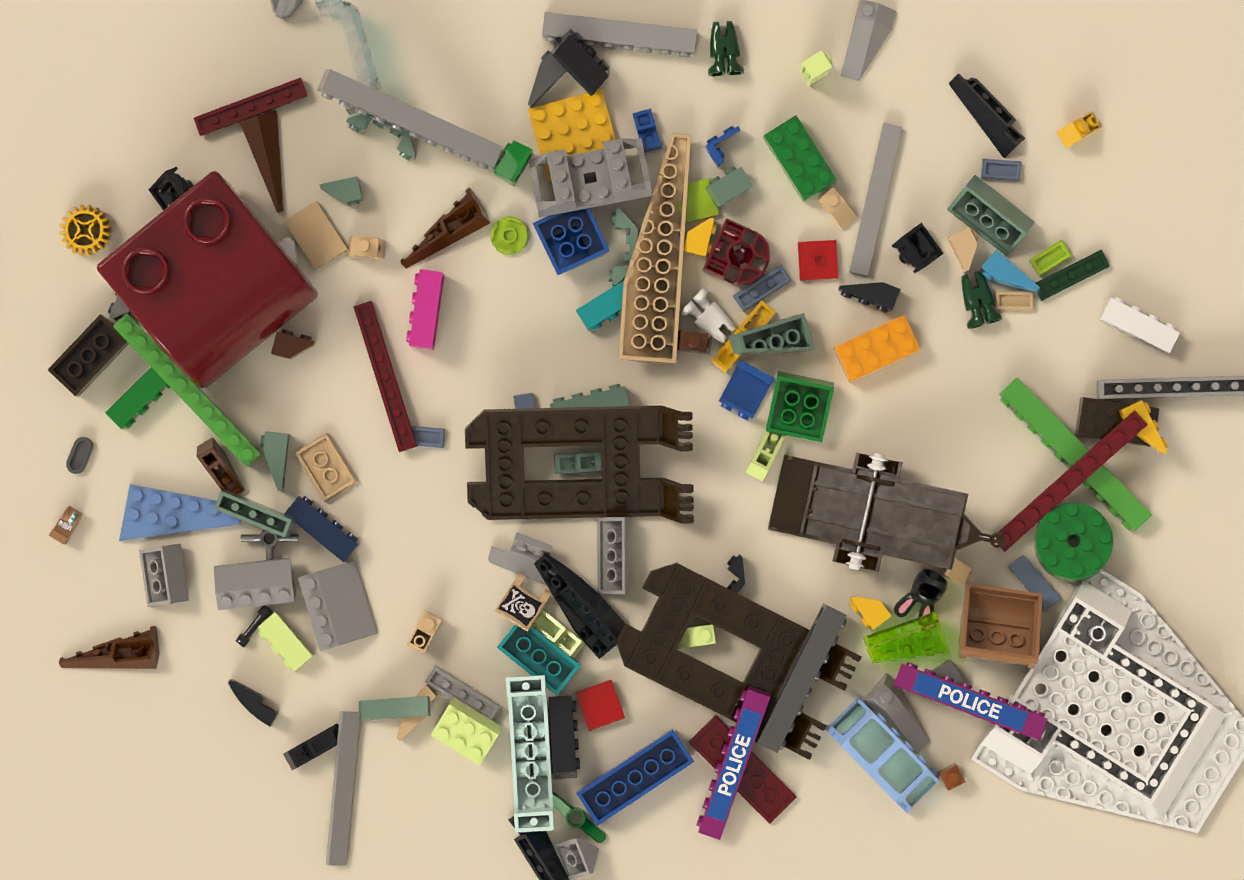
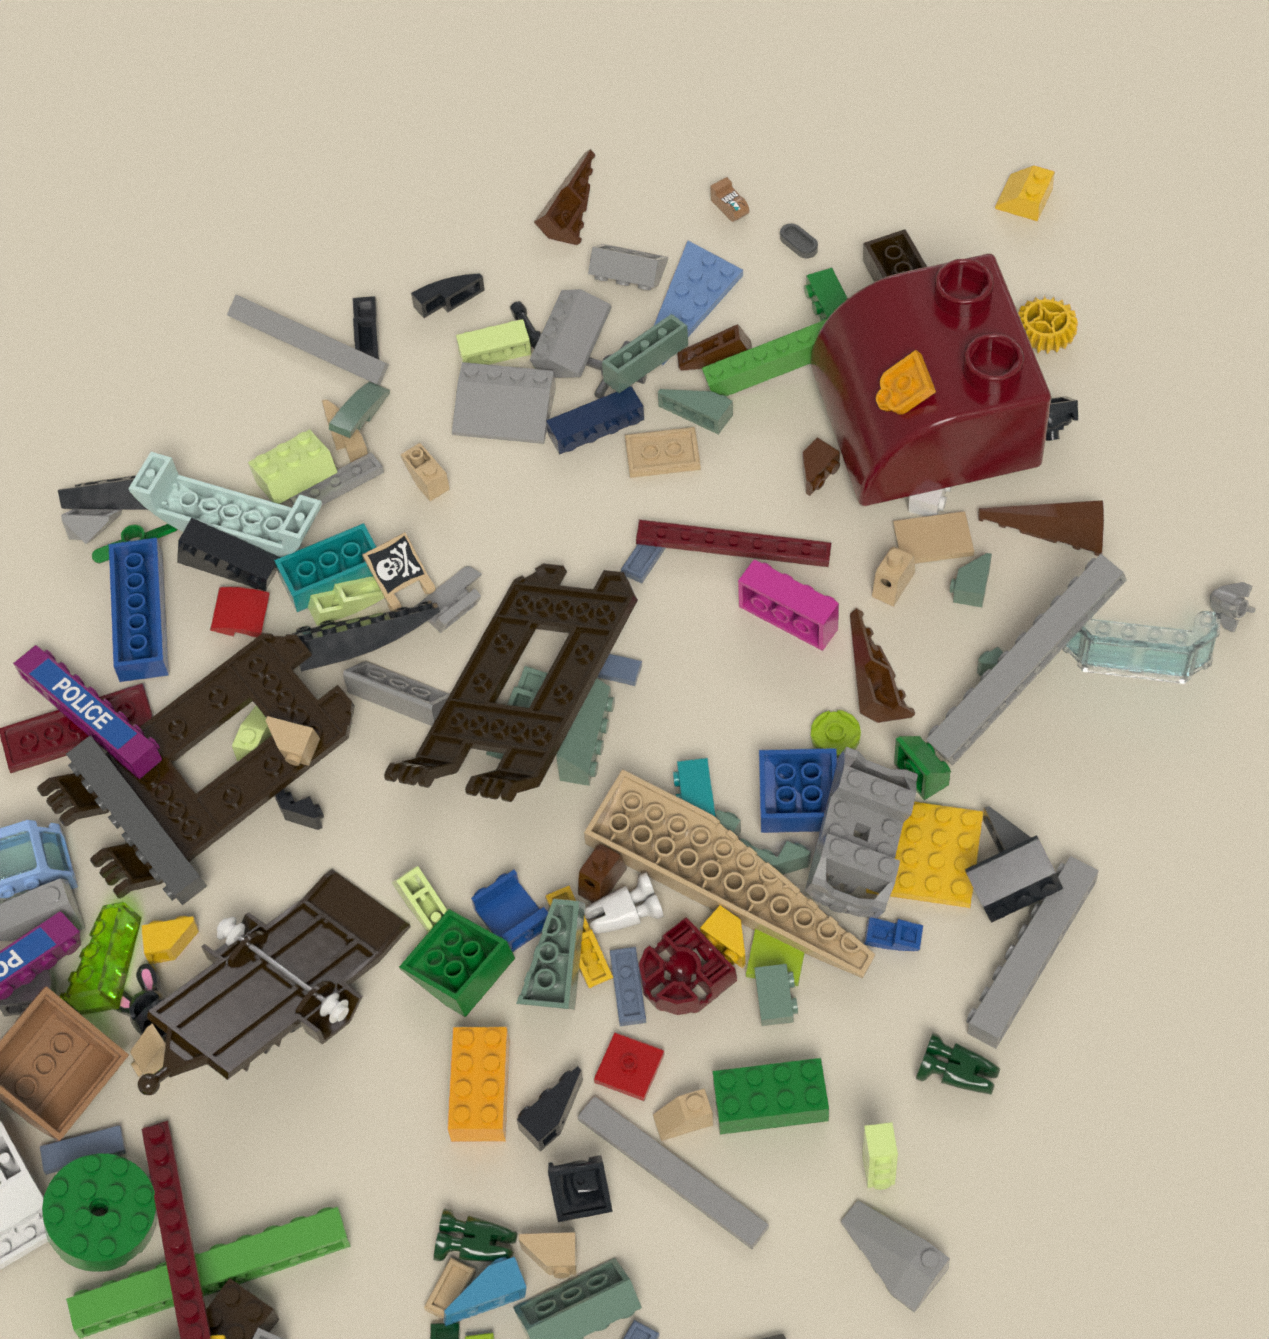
camera: 120 degrees right, 30 degrees down
(249, 279) = (905, 385): none -> light orange plate
(250, 106) = (1118, 520): dark red plate -> none
(701, 595) = (293, 740): none -> tan slope
(717, 154) = (828, 997): blue bracket -> none

